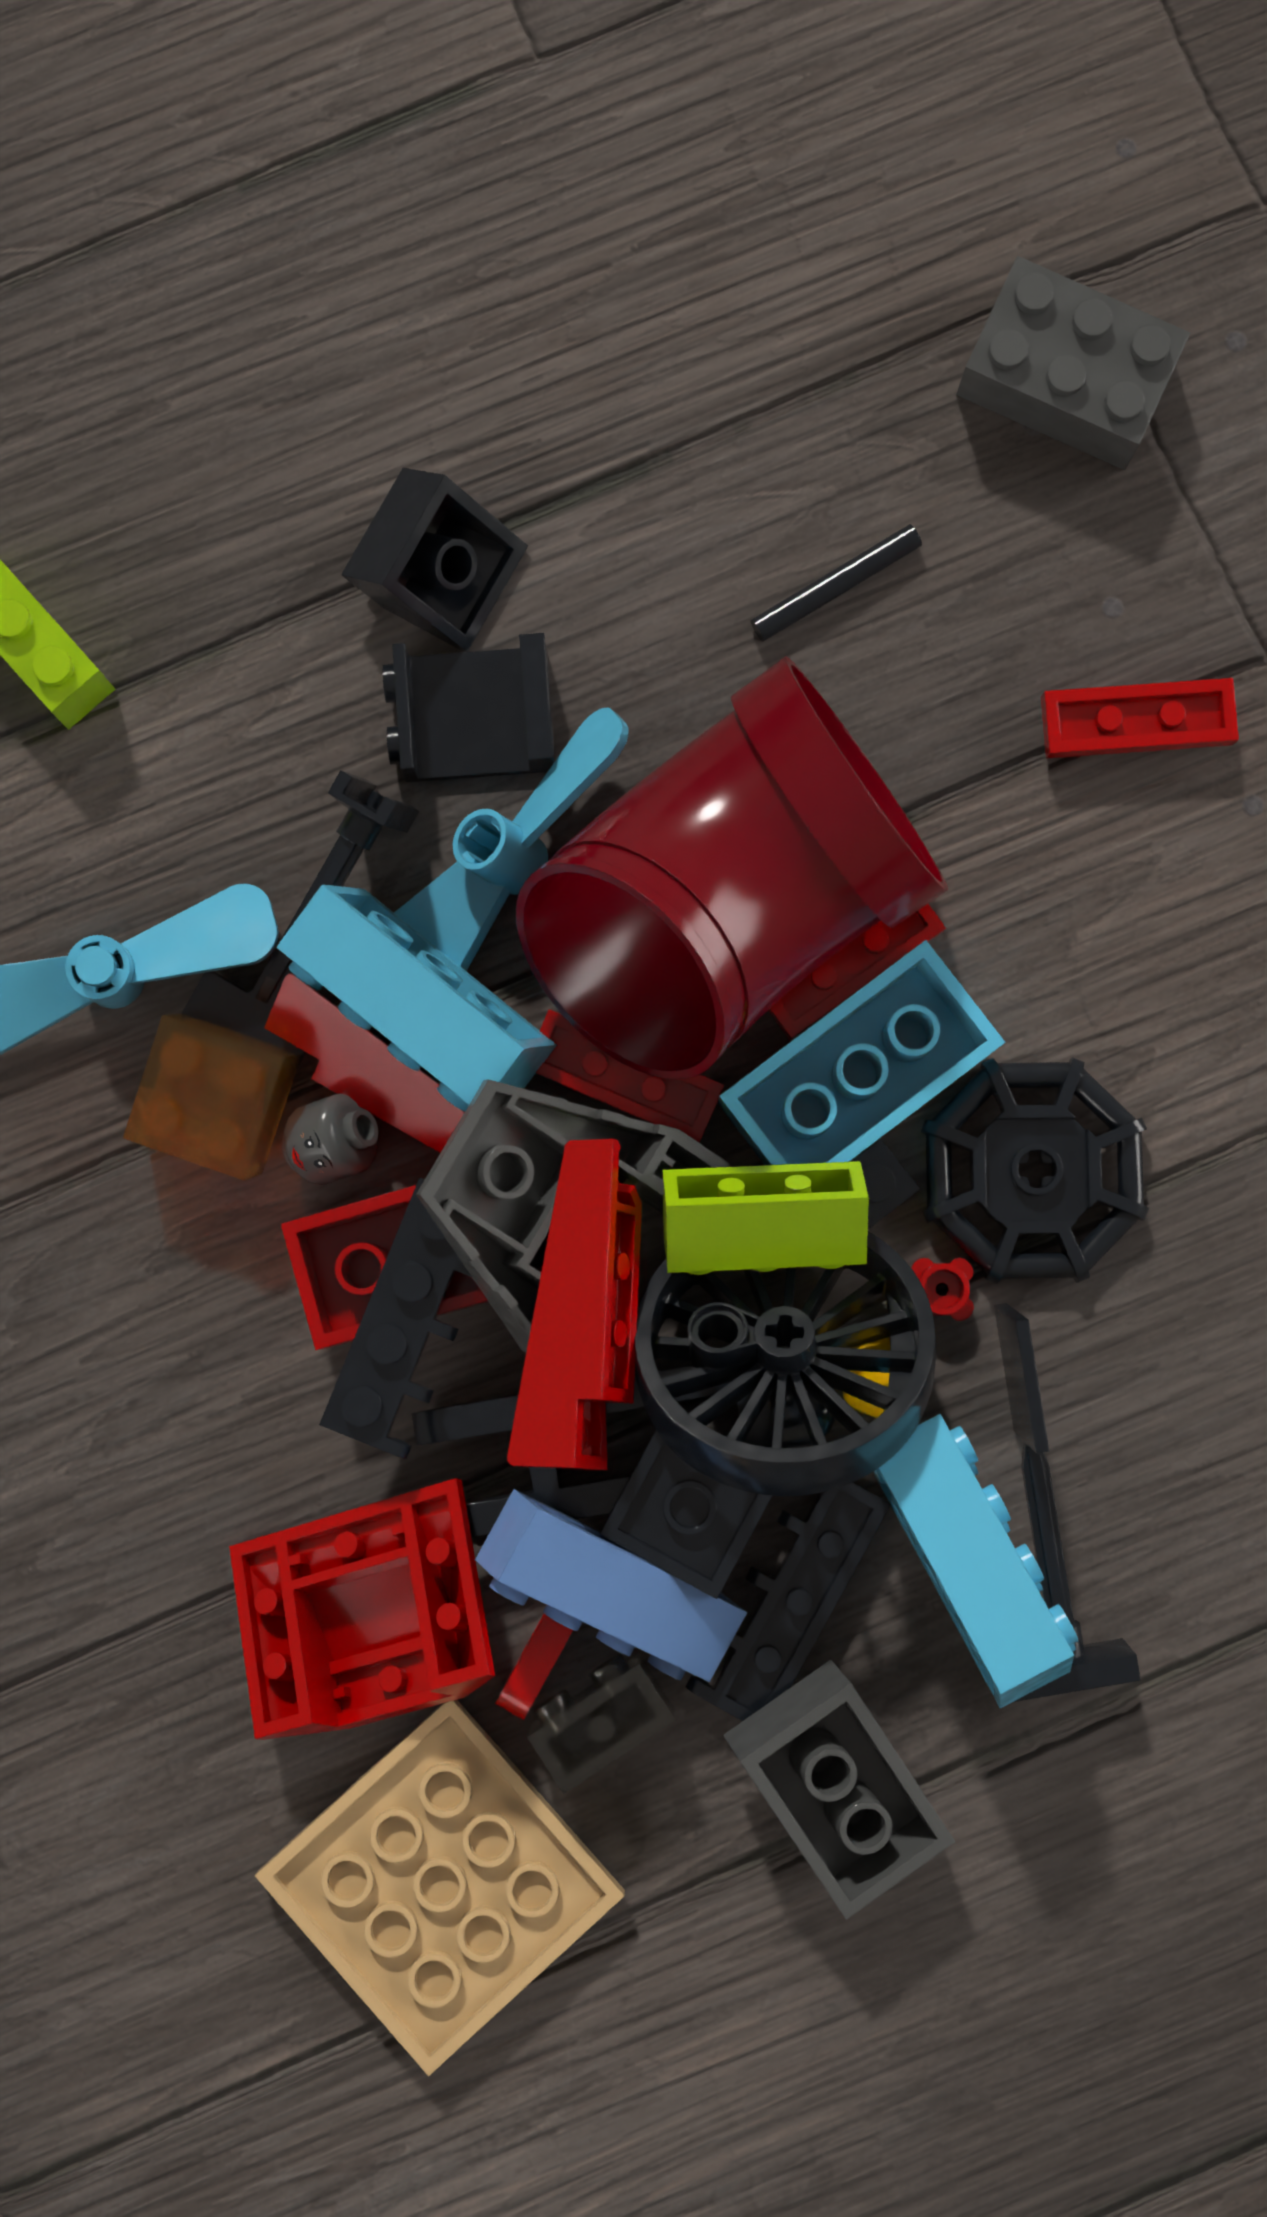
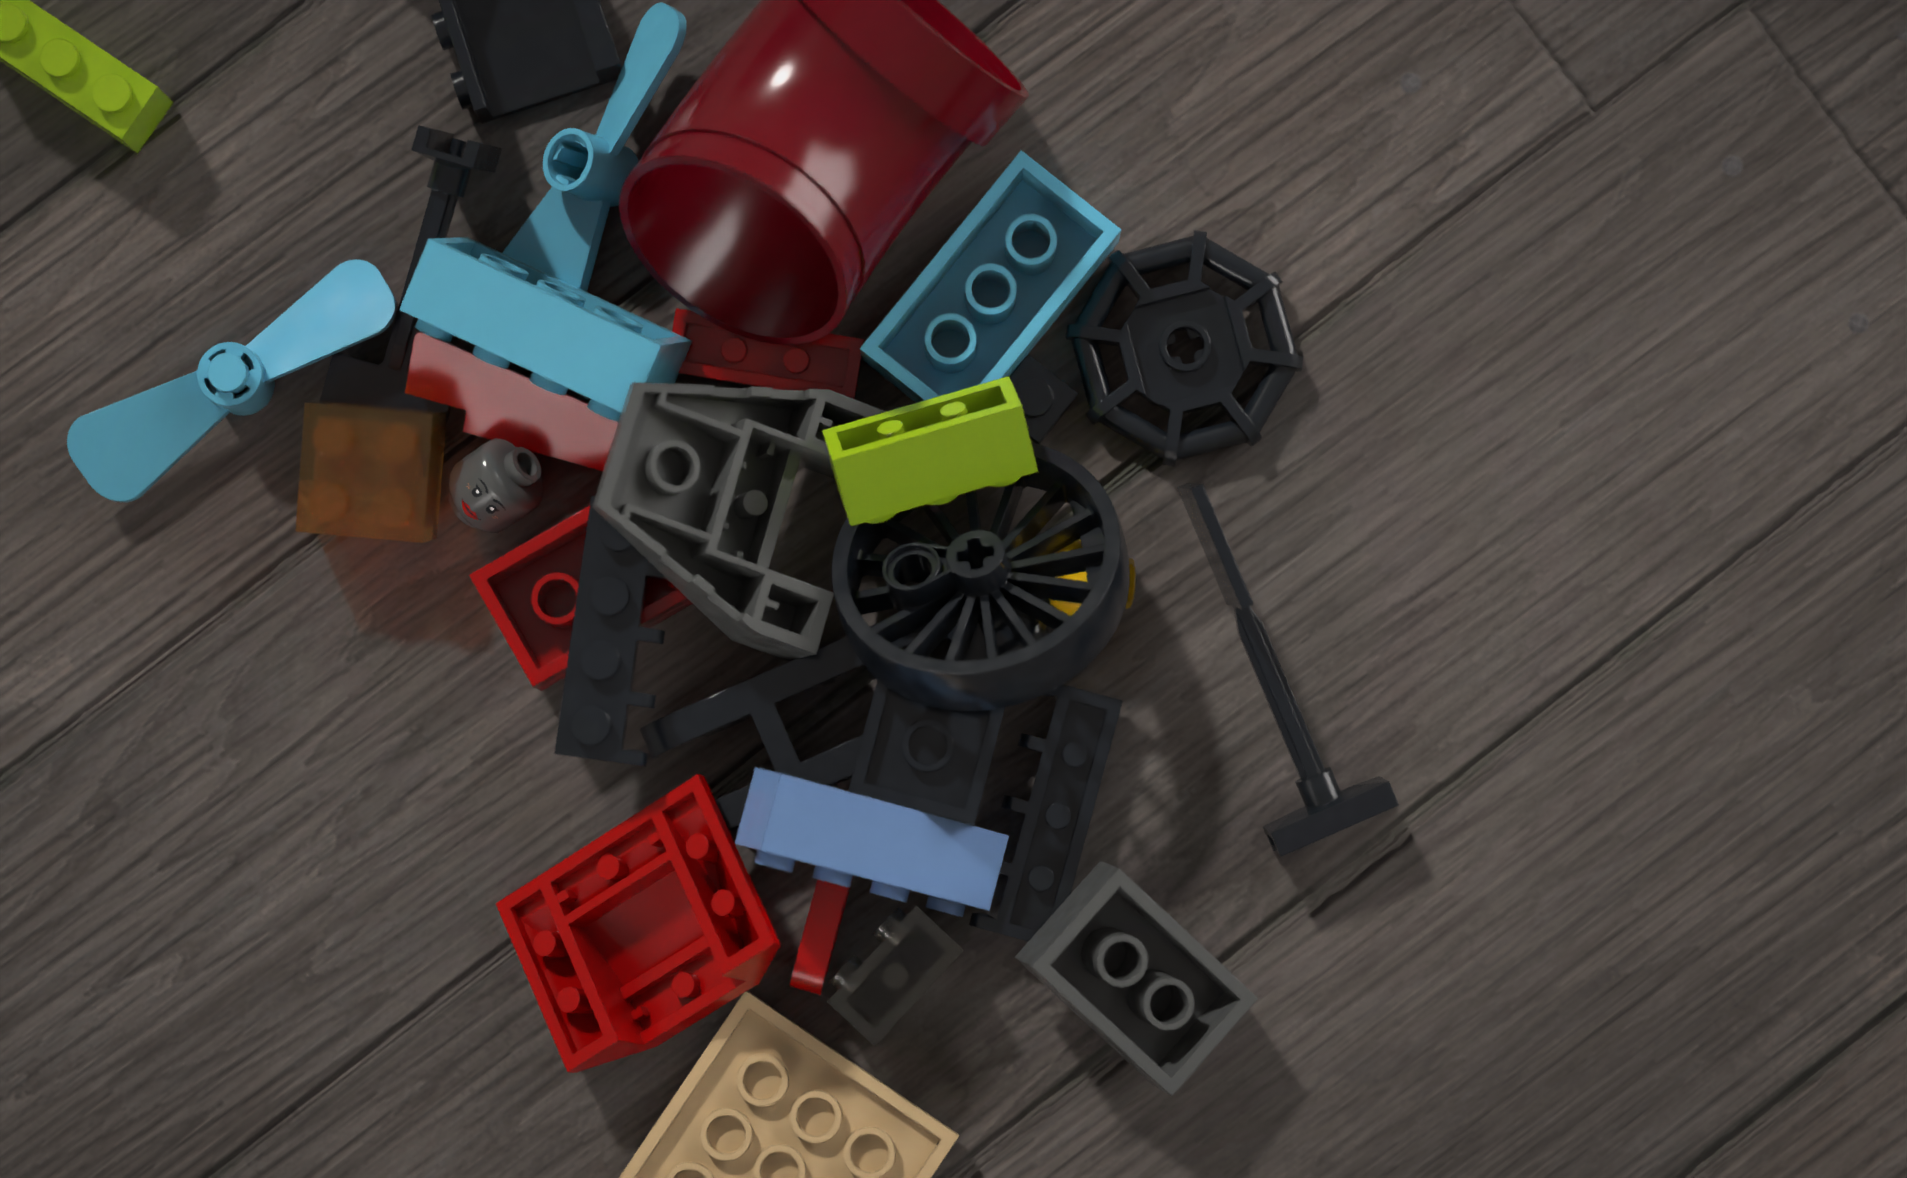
camera: 15 degrees left, 0 degrees up
(582, 1315) = (779, 586): red wedge -> none
(852, 970) = (958, 195): red plate -> none
(955, 1277) = (1134, 470): red plate -> none
(974, 1565) = (1210, 731): medium azure brick -> none

